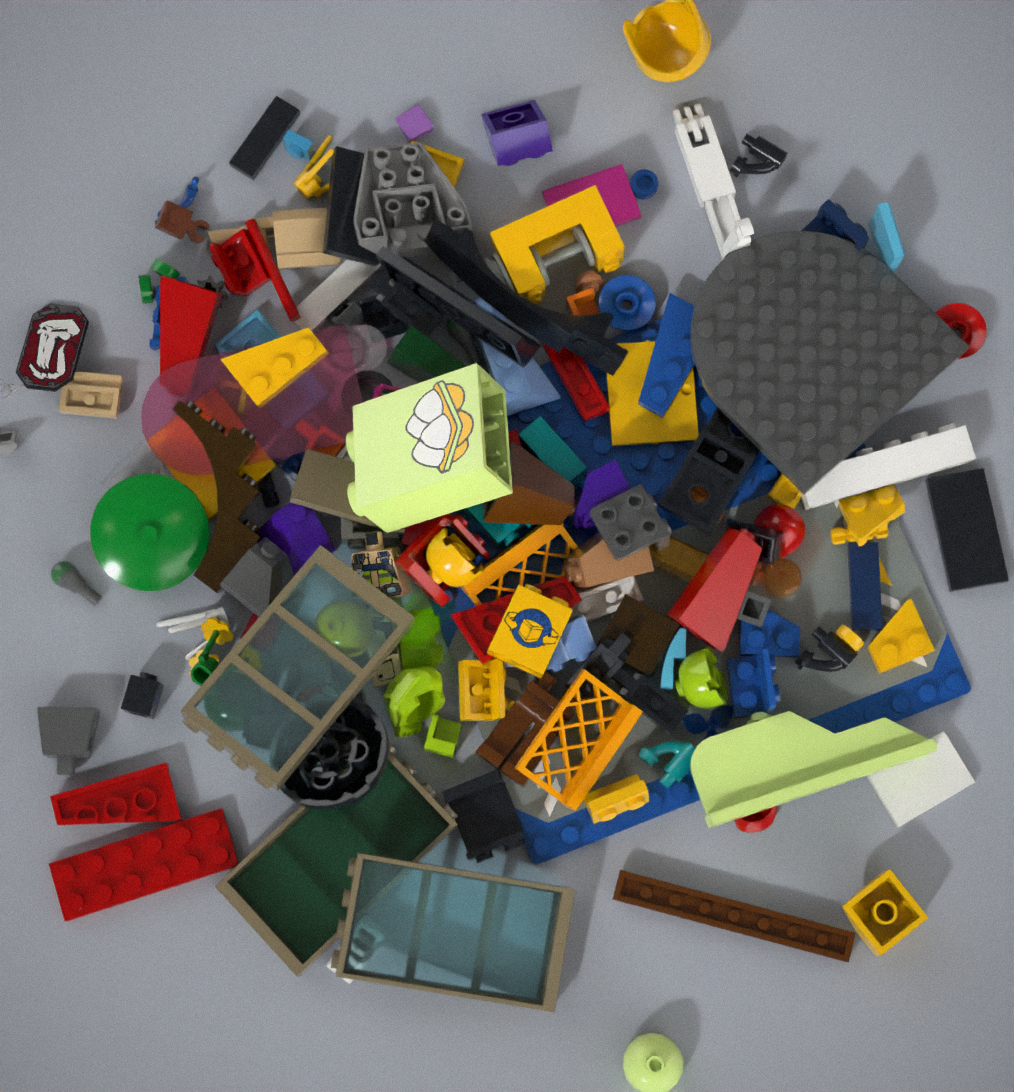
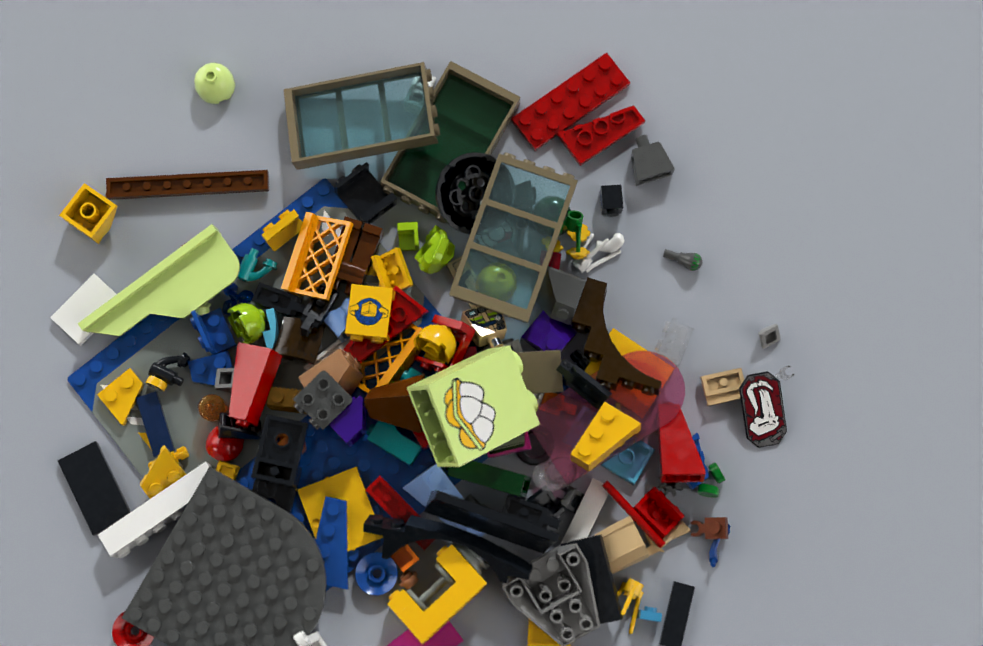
camera: 160 degrees right, 0 degrees up
(149, 532) = (647, 304): green dish -> none
(160, 634) = (613, 244): none -> white arm
(275, 443) = (583, 384): none -> black hinge
(419, 644) = (440, 285): clear neon green brick -> none

